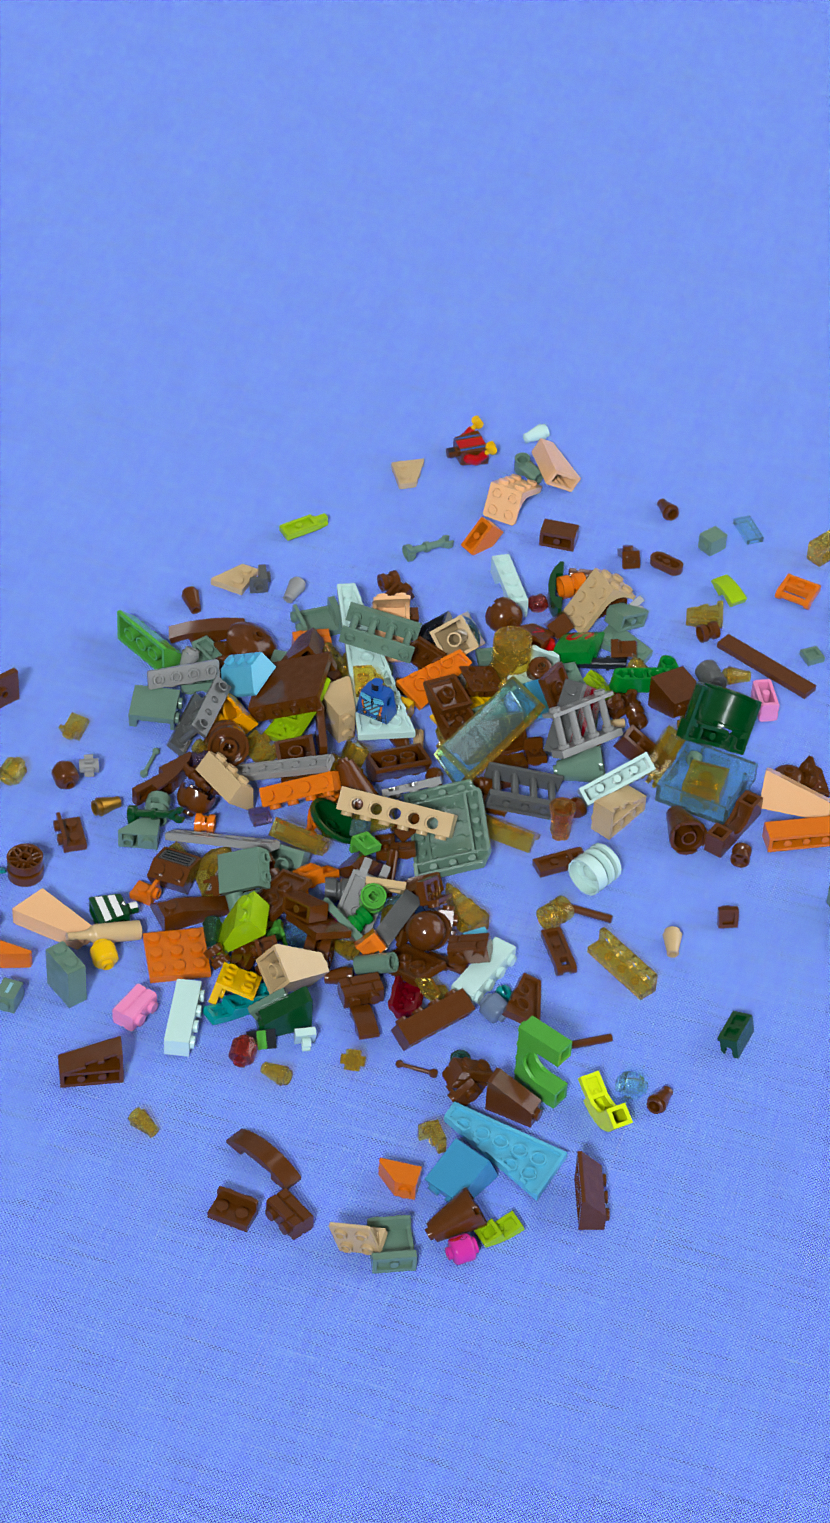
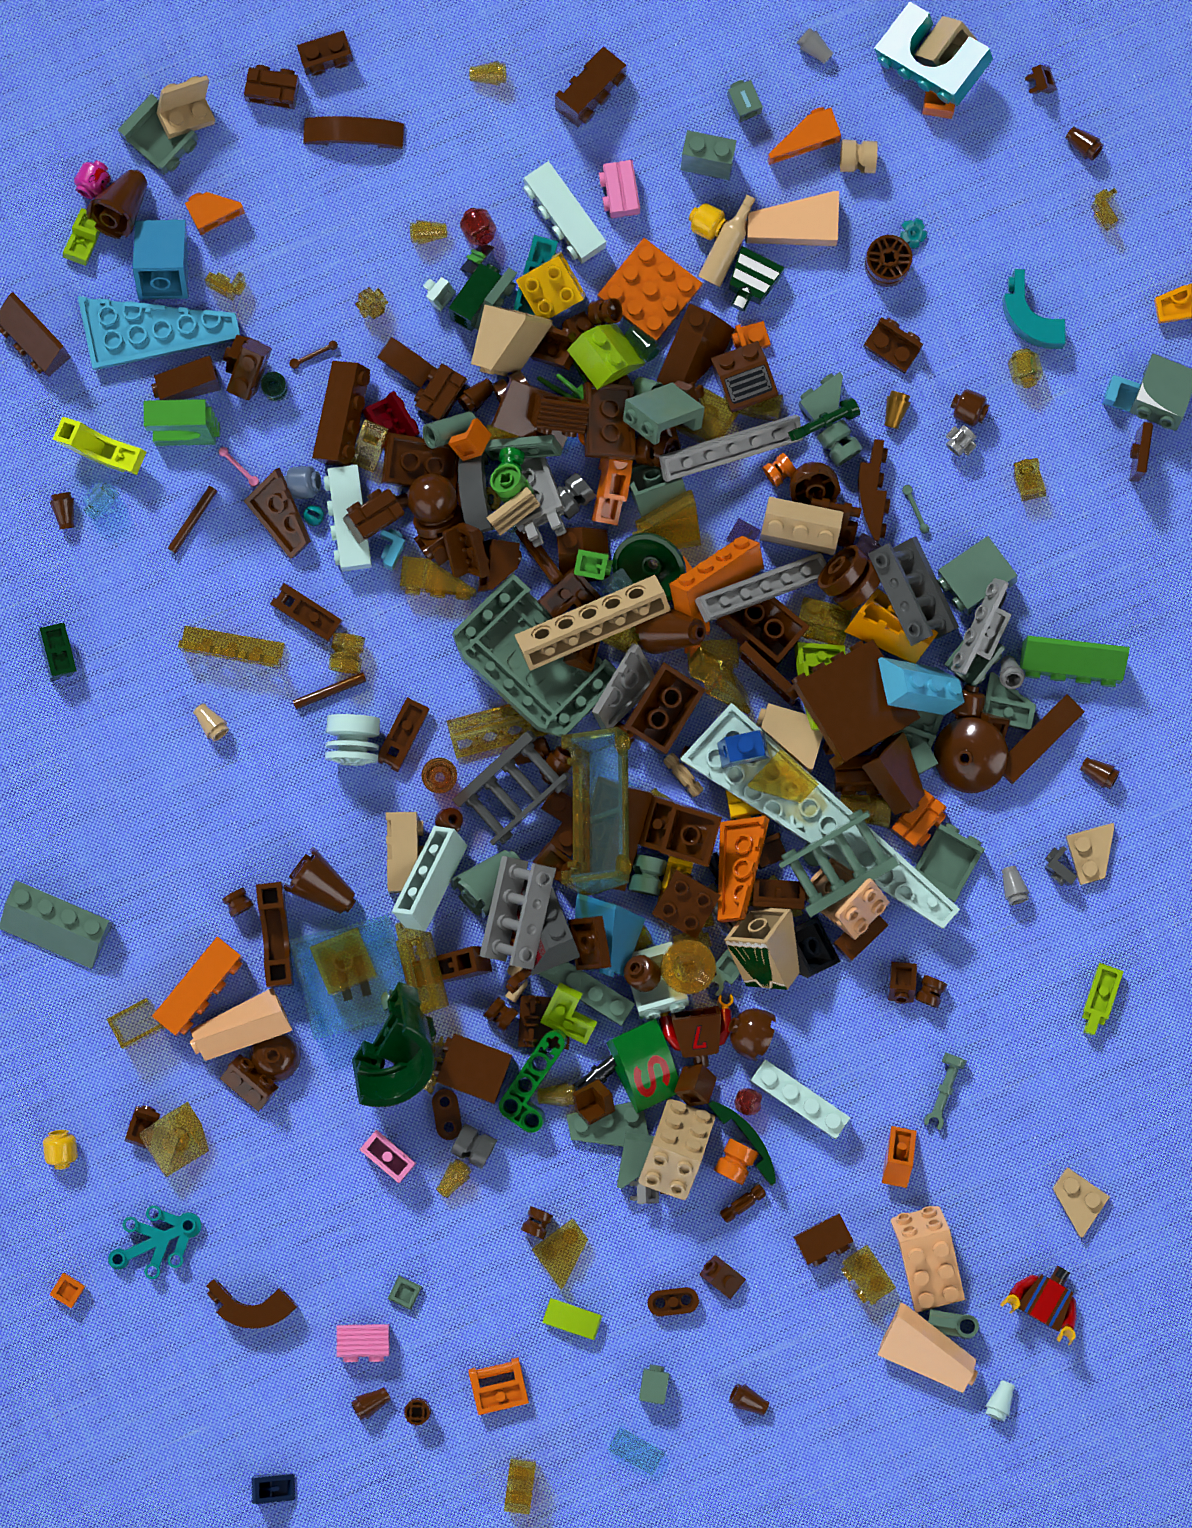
camera: 140 degrees right, 40 degrees up
(552, 508) = (867, 1275): none -> clear yellow bracket
(727, 916) = (183, 803): reddish brown tile -> none
(766, 666) = (438, 1228): reddish brown tile -> none

